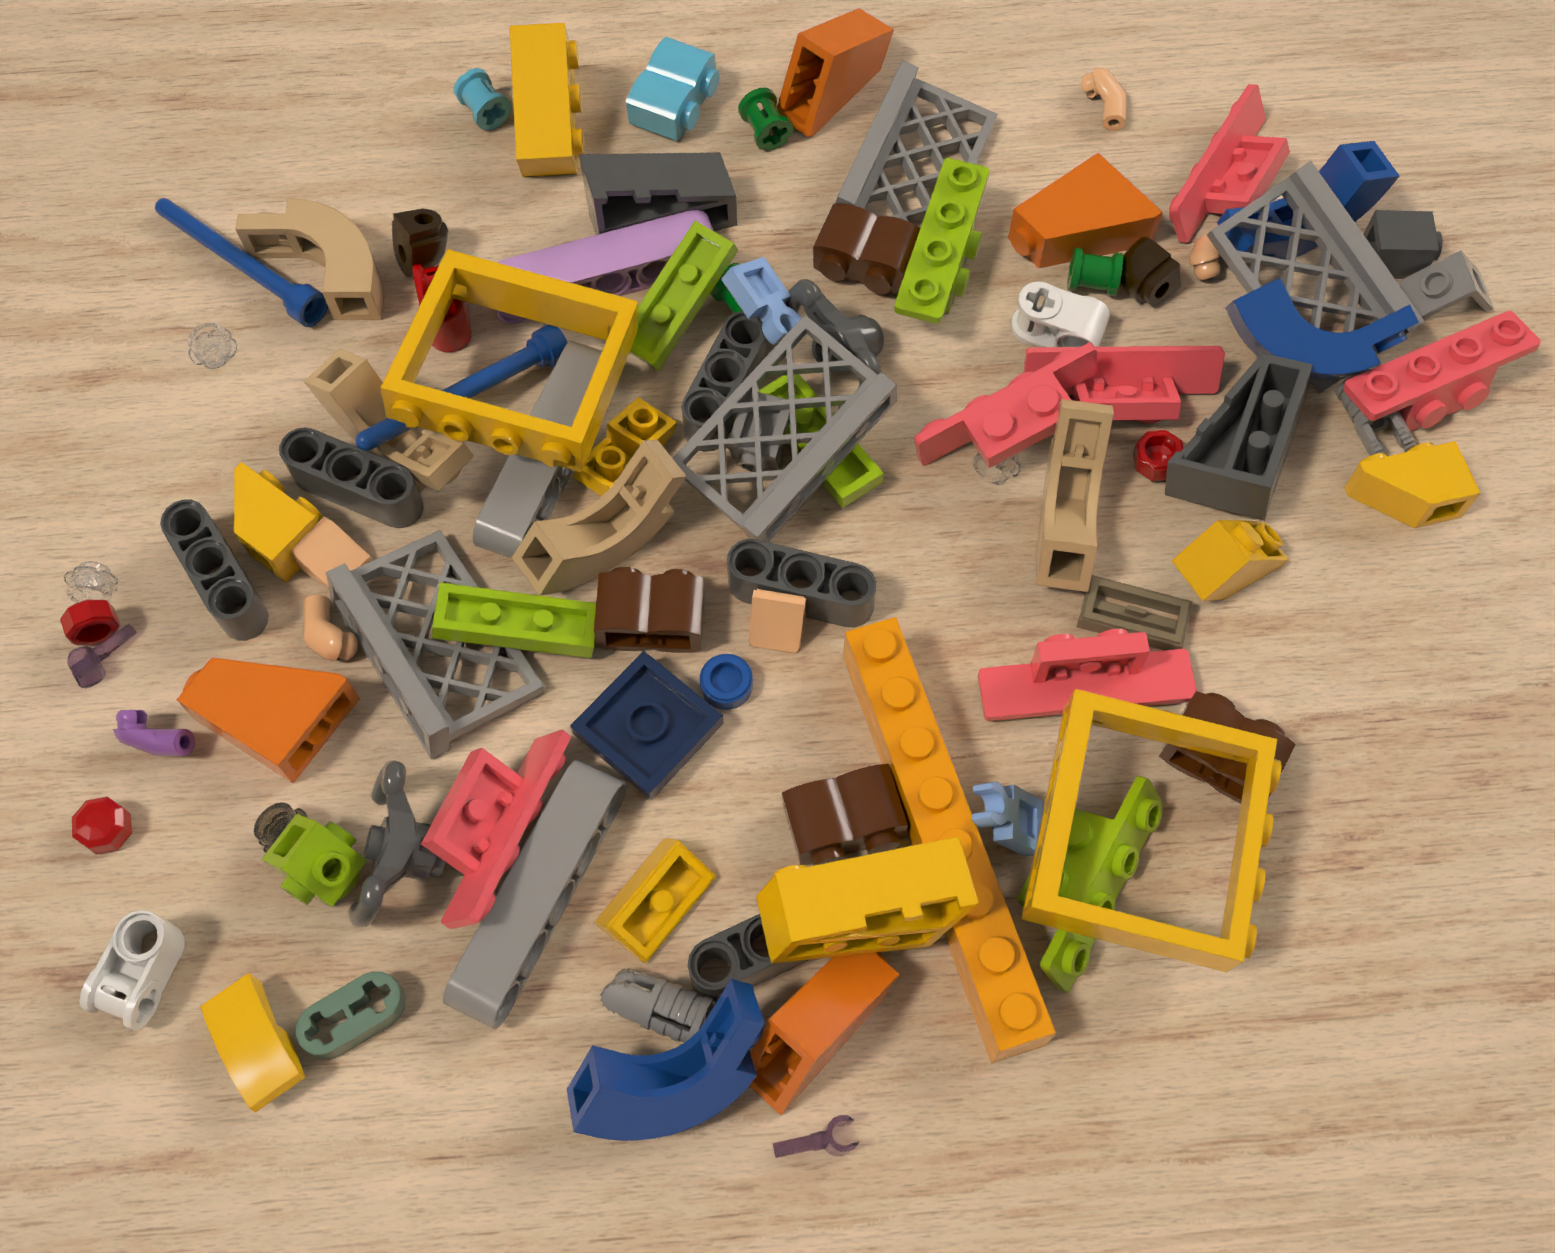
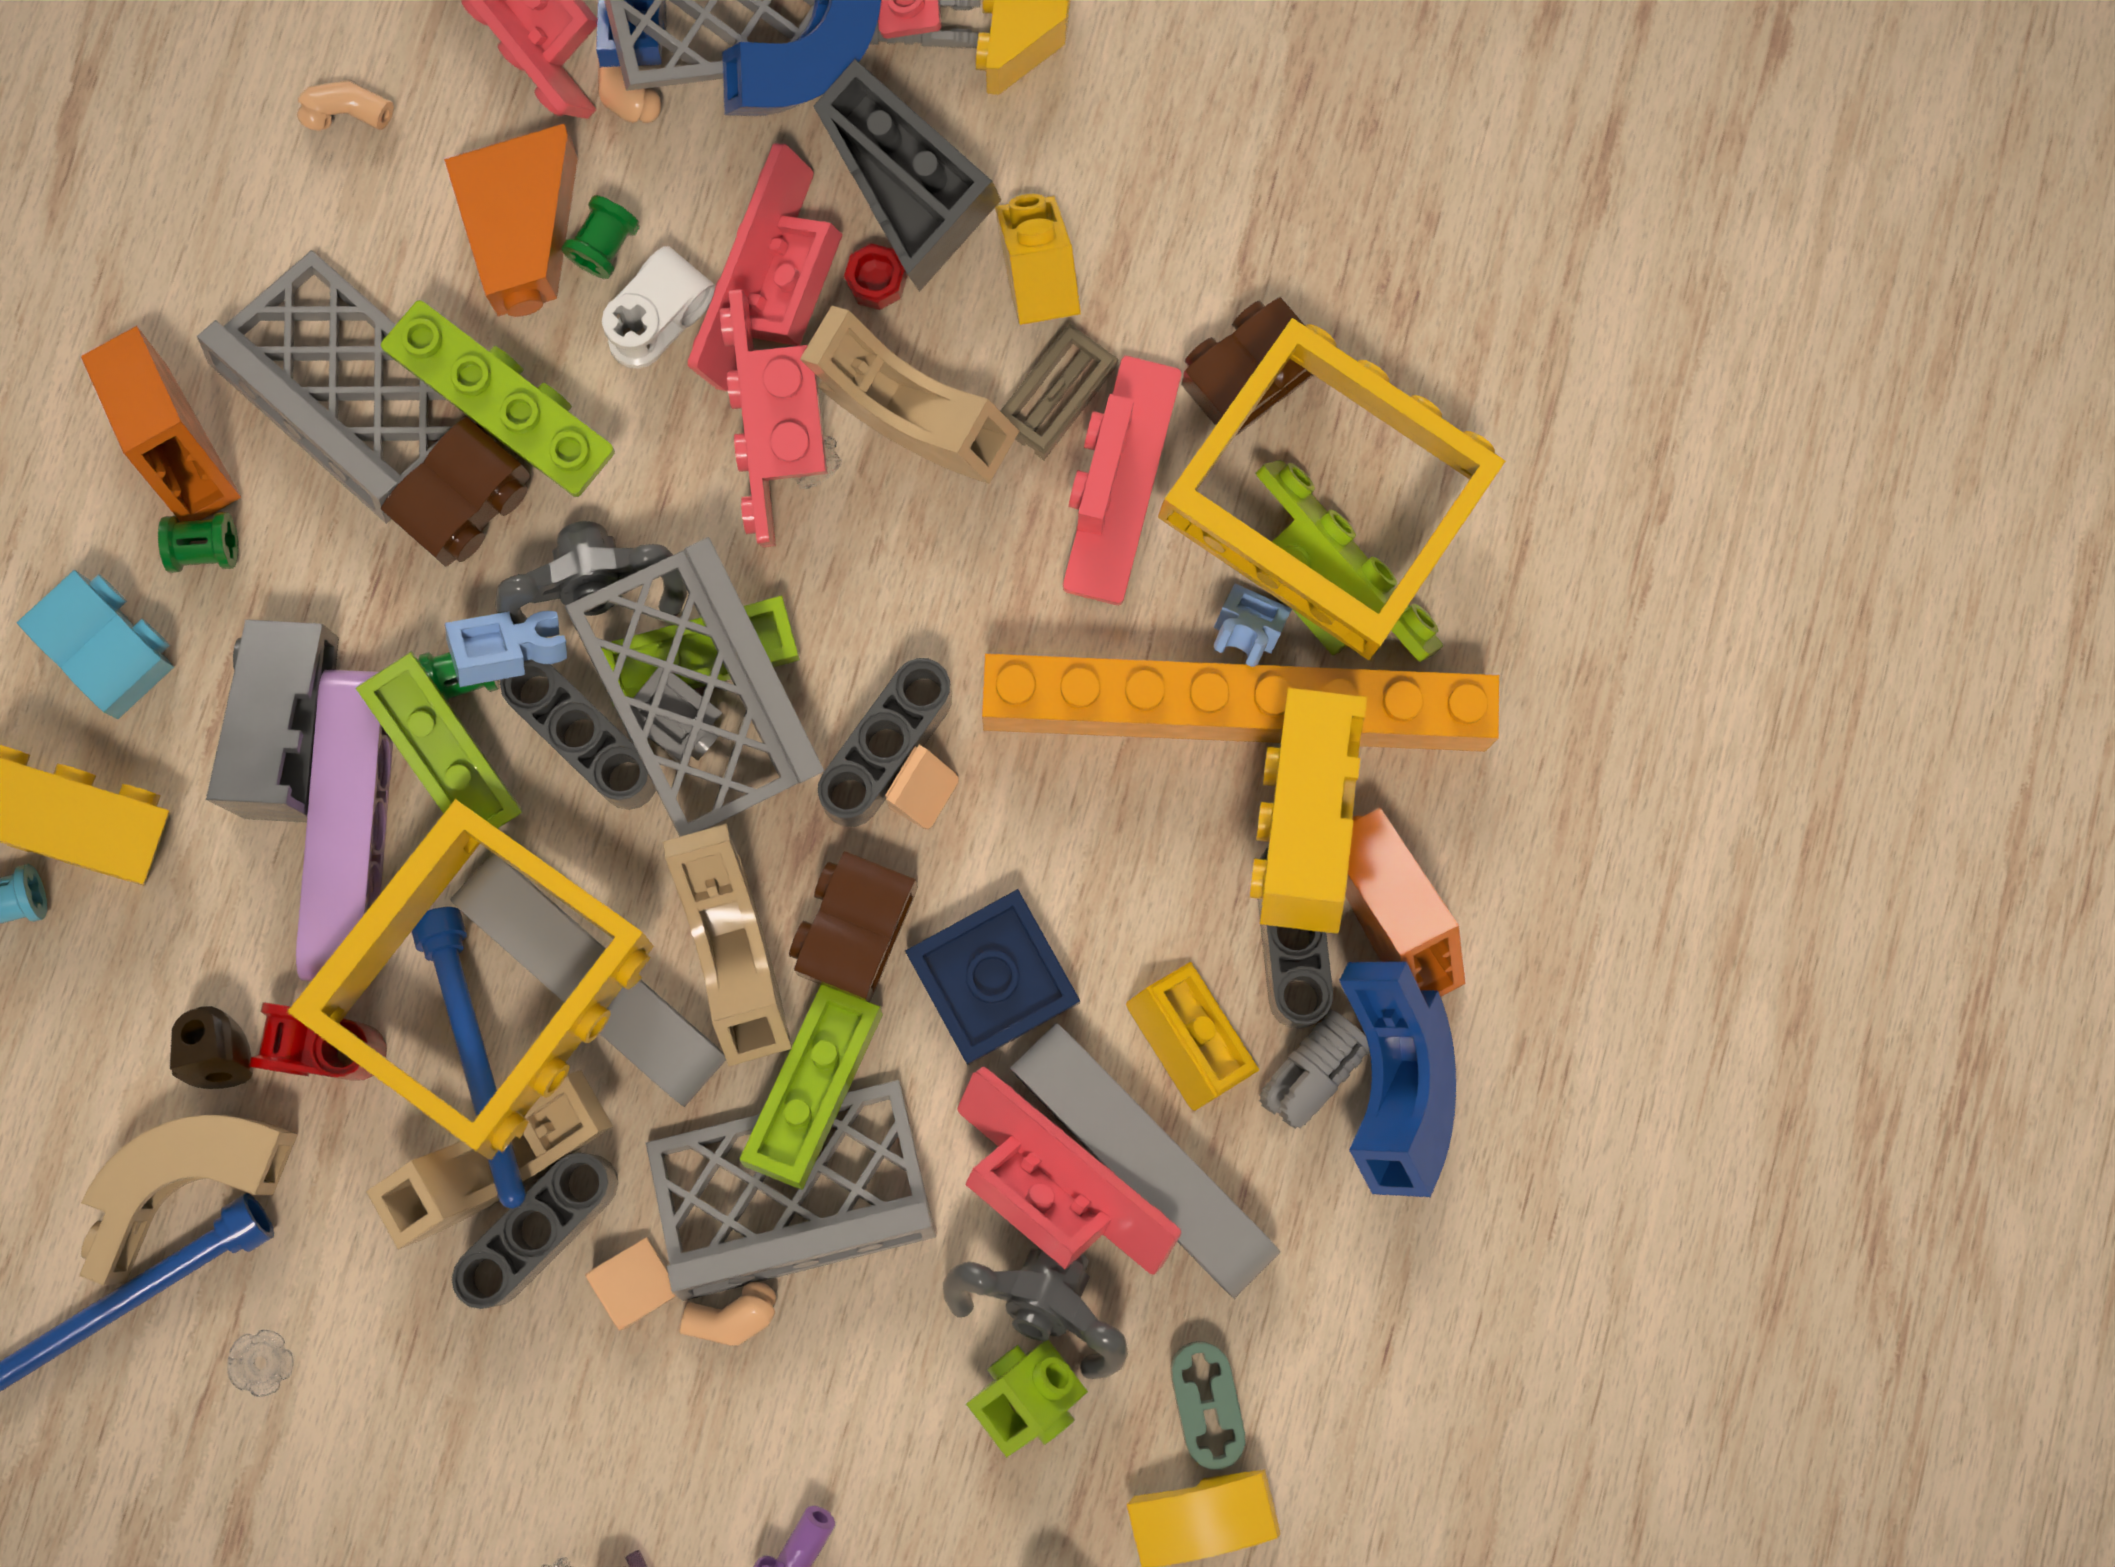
camera: 75 degrees left, 15 degrees up
(203, 552) = (569, 1443): dark grey beam -> none
(269, 710) = (815, 1411): orange slope -> none
(270, 520) = (563, 1346): yellow slope -> none
(273, 822) = (955, 1437): clear smoke plate -> none
(623, 437) = (620, 878): yellow slope -> none
(726, 681) = (968, 871): blue tile -> none
(817, 1141) = (1505, 954): hand -> none
(845, 815) = (1181, 798): reddish brown brick -> none
(1149, 272) = (628, 175): dark brown piece -> none

